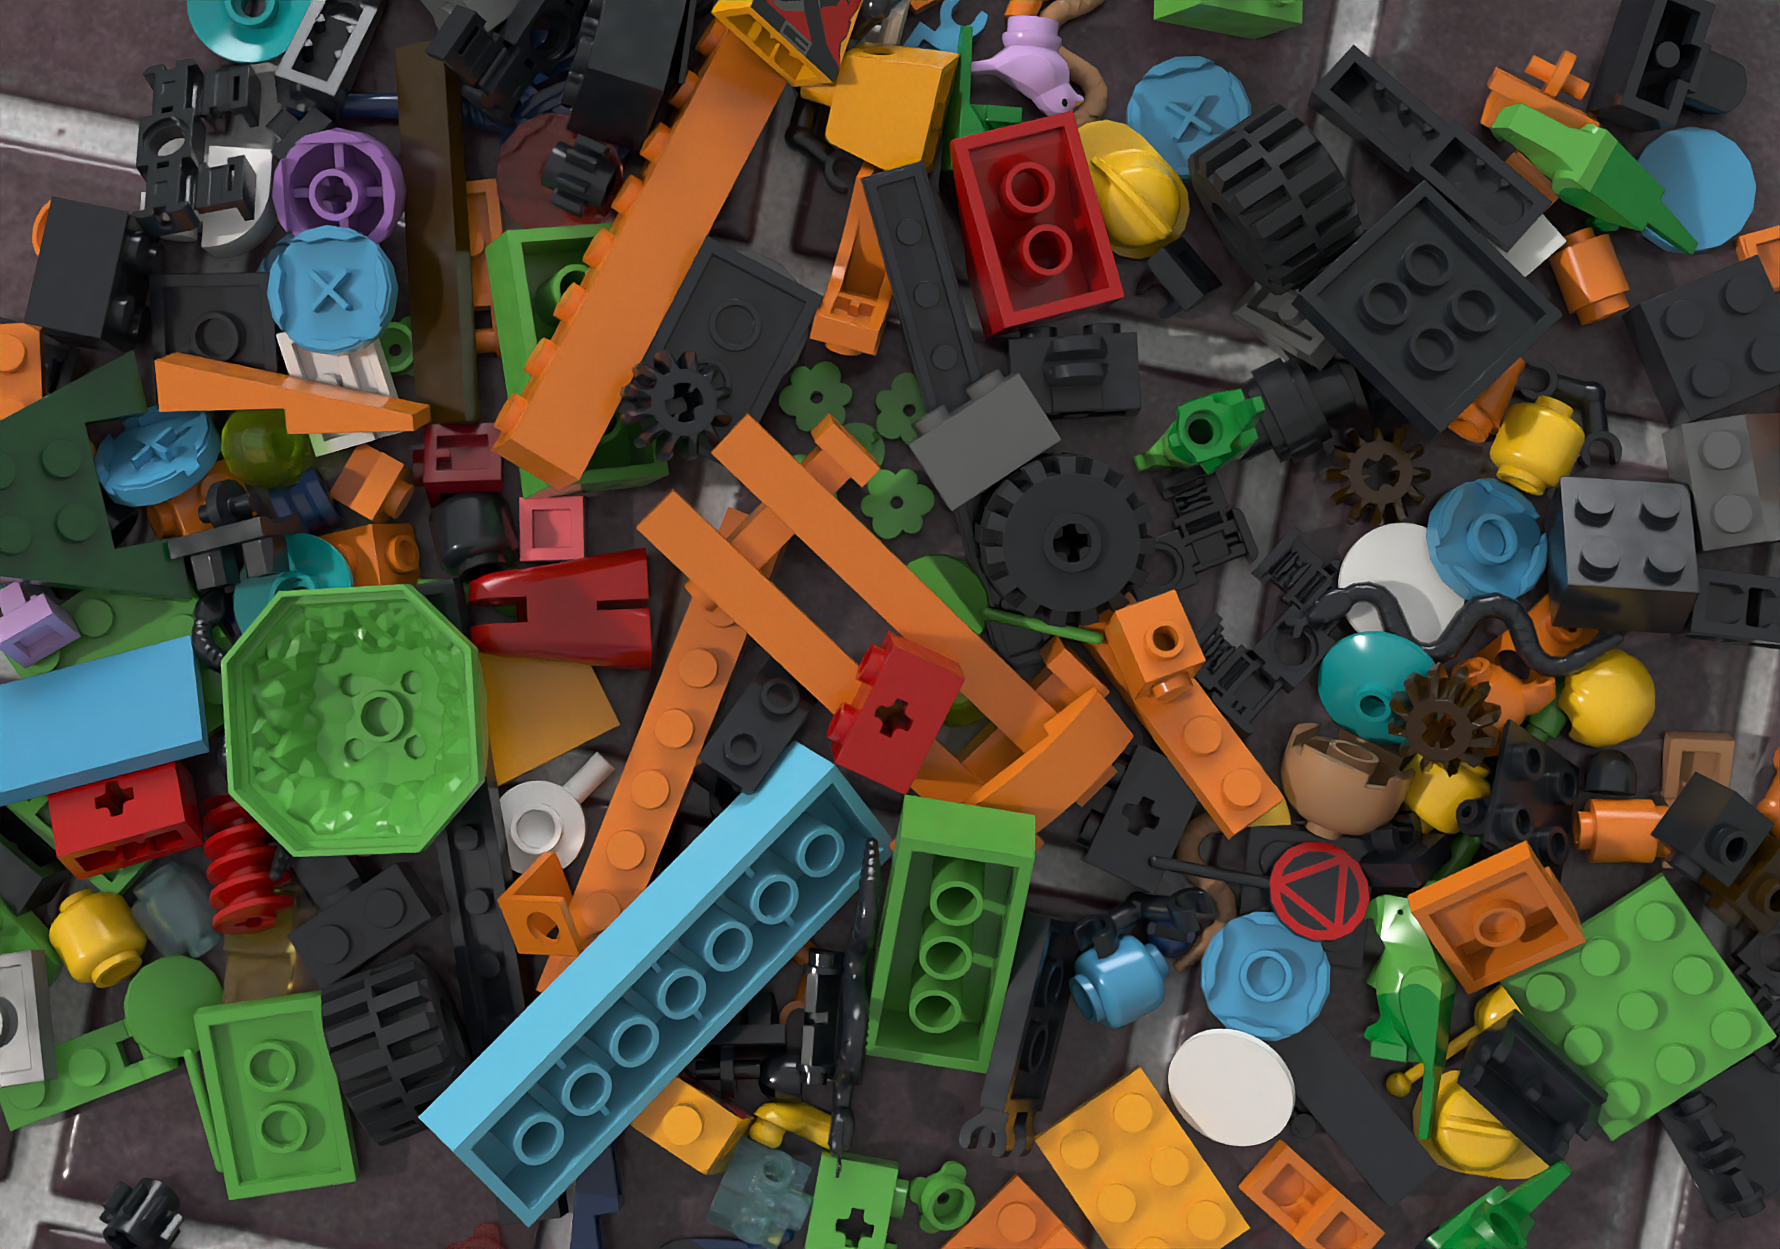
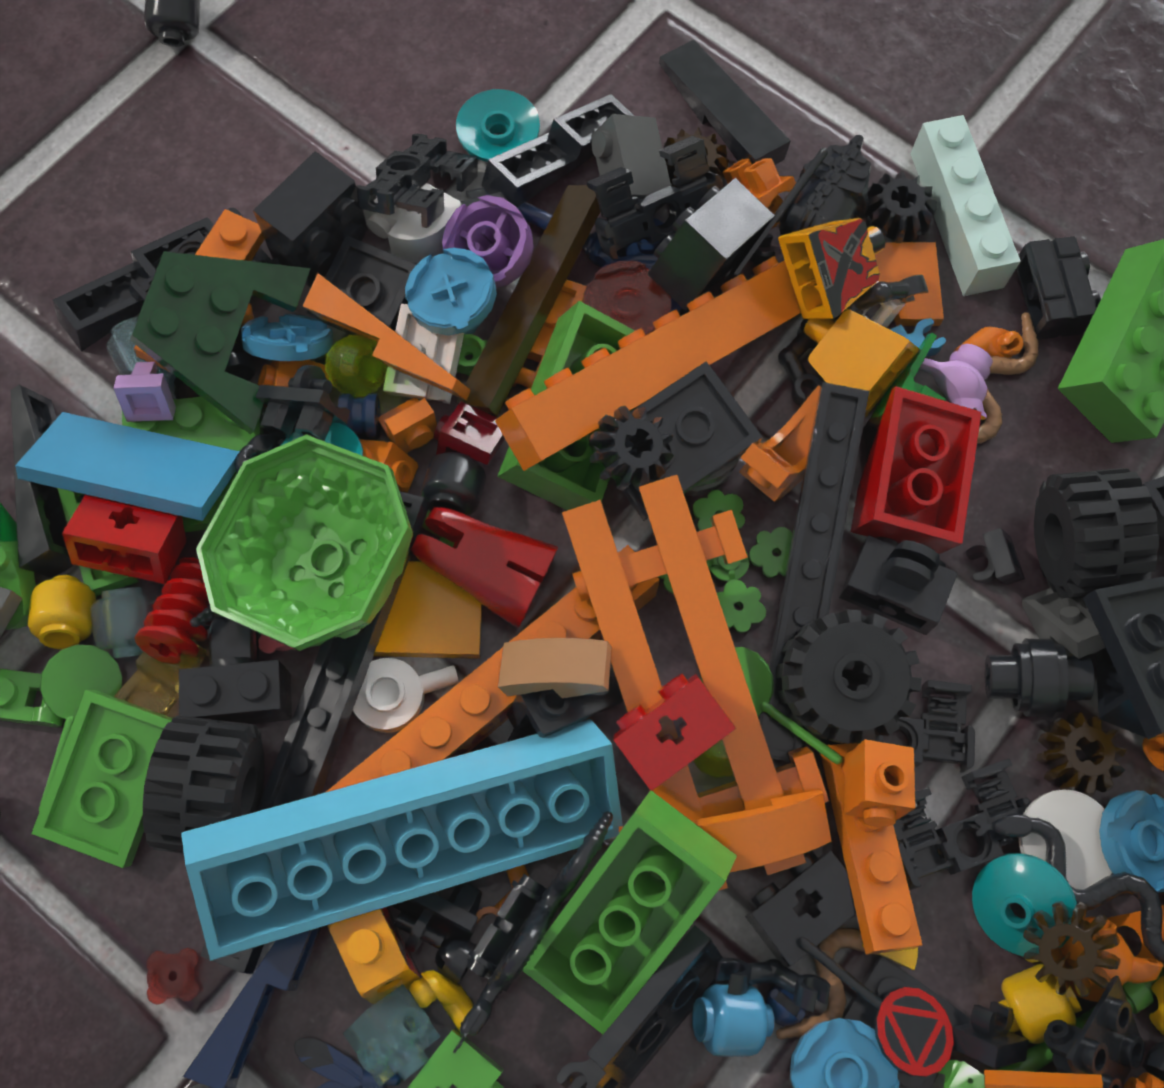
camera: 25 degrees right, 15 degrees down
(537, 905) = (353, 741): orange bracket -> none
(552, 529) = (505, 506): coral plate -> none
(580, 175) = (642, 298): black gear -> none
(722, 707) = (560, 664): none -> medium nougat slope
(981, 438) = (822, 582): dark grey brick -> none
(1135, 188) = (996, 490): yellow piece -> none
(1185, 107) = (1038, 454): dark azure tile -> none
(1206, 433) = (984, 657): green animal -> none
(1342, 782) = (965, 961): medium nougat cylinder -> none

